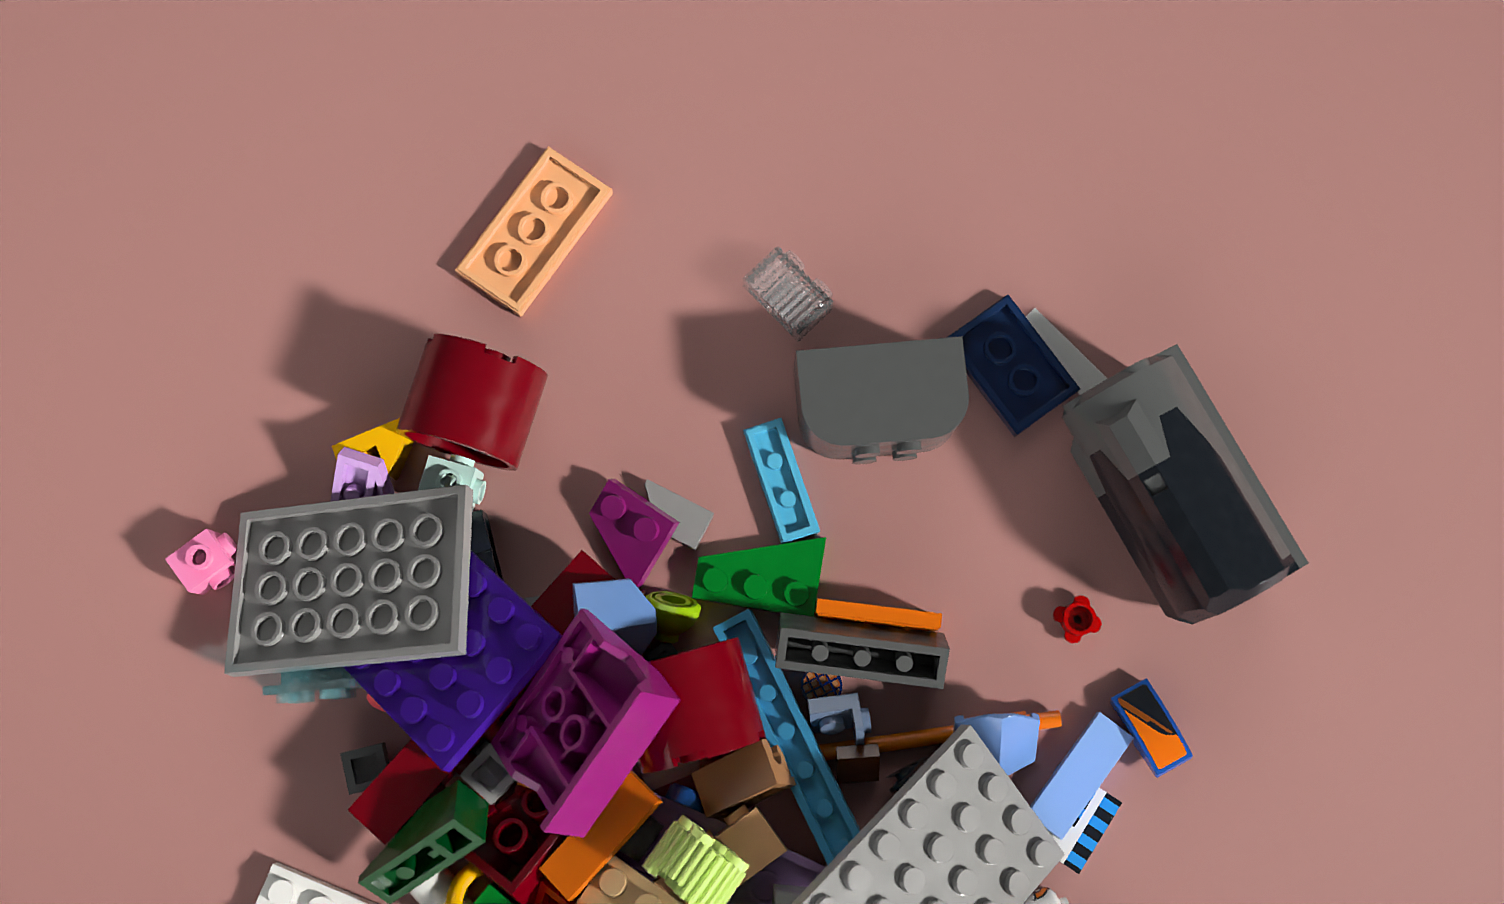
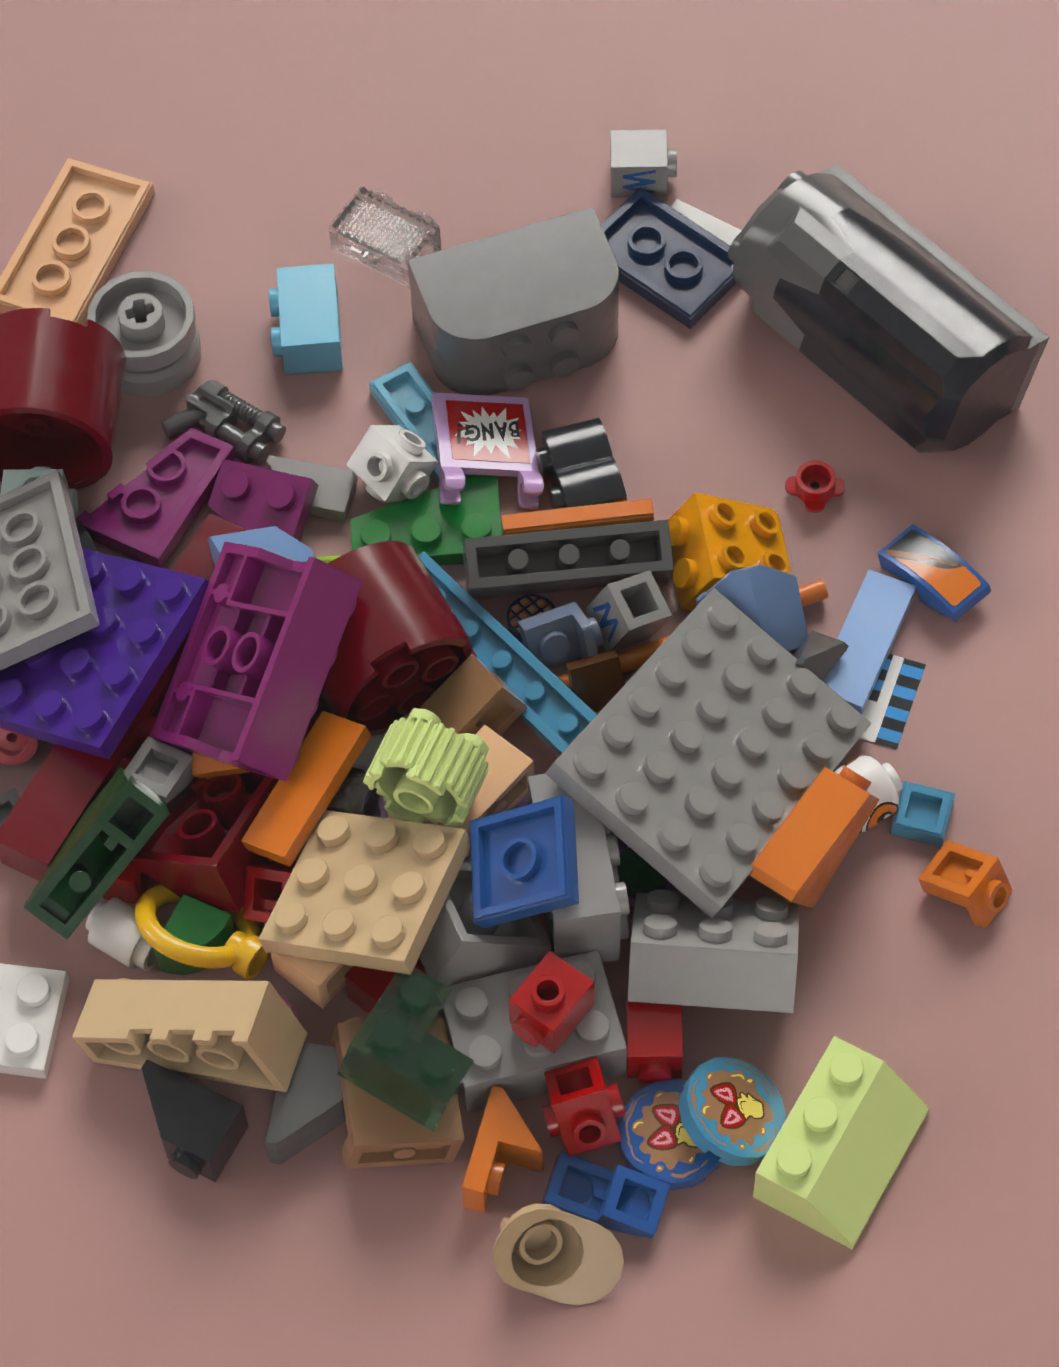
camera: 10 degrees left, 20 degrees down
(552, 500) = (162, 502): none -> magenta wing
(593, 346) = (155, 327): none -> light grey wheel
(614, 423) = (217, 412): none -> dark grey piece
(706, 357) = (308, 319): none -> medium azure brick
(743, 520) = (392, 463): none -> white brick
(824, 510) = (485, 439): none -> flag
(893, 563) = (580, 465): none -> black brick
(898, 712) = (629, 611): none -> light grey brick
(992, 667) = (718, 537): none -> light orange bracket
(1014, 273) = (639, 161): none -> brick
(1036, 784) = (819, 653): none -> dark grey slope

